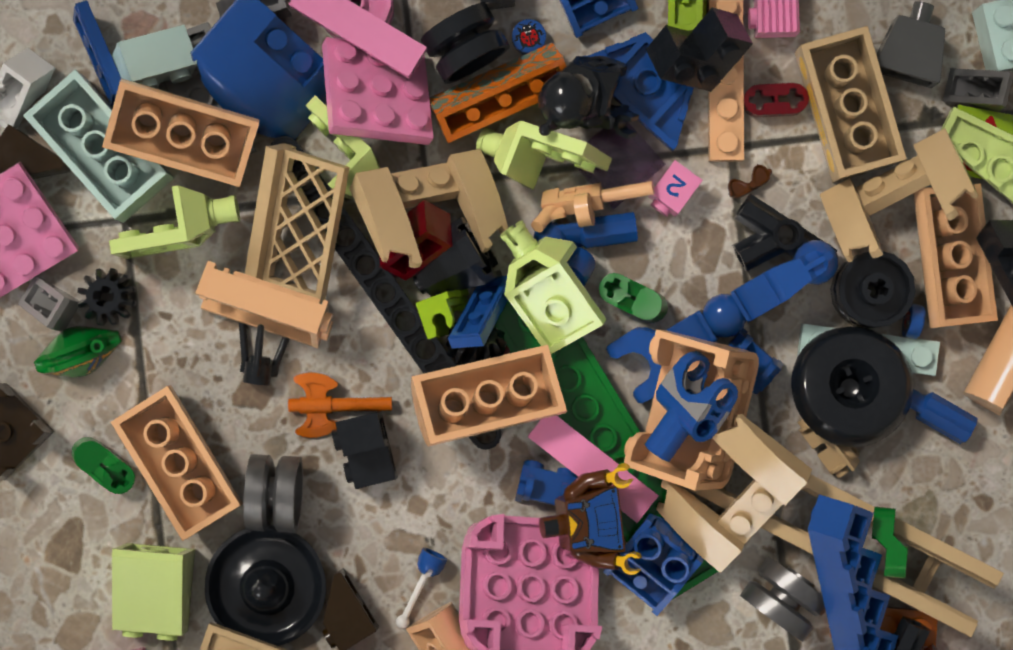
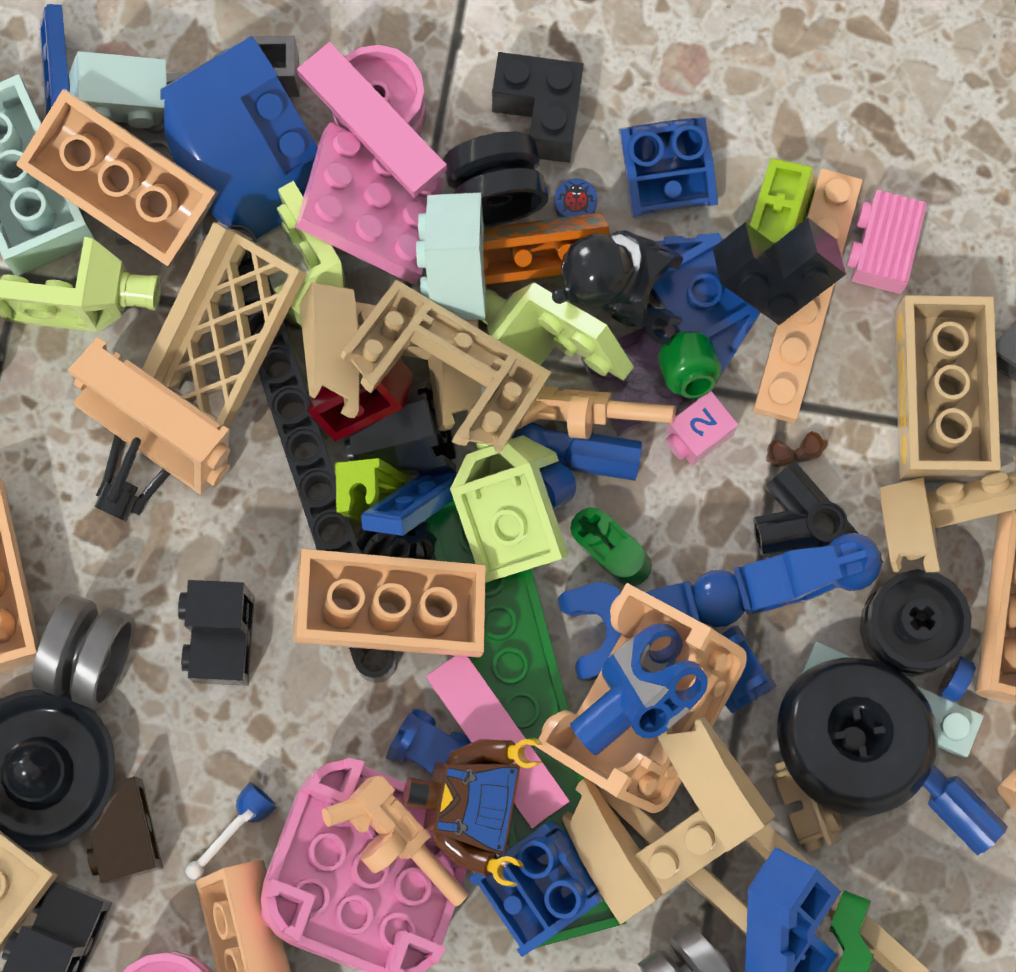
camera: 10 degrees right, 10 degrees down
(318, 404) = (178, 563): orange piece -> none
(453, 118) = (453, 254): none -> light aqua brick
(522, 198) = (409, 318): none -> tan wedge
(543, 559) = (398, 834): none -> light nougat piece
(653, 145) = (689, 364): none -> green head
(775, 108) = (857, 350): dark red beam -> none

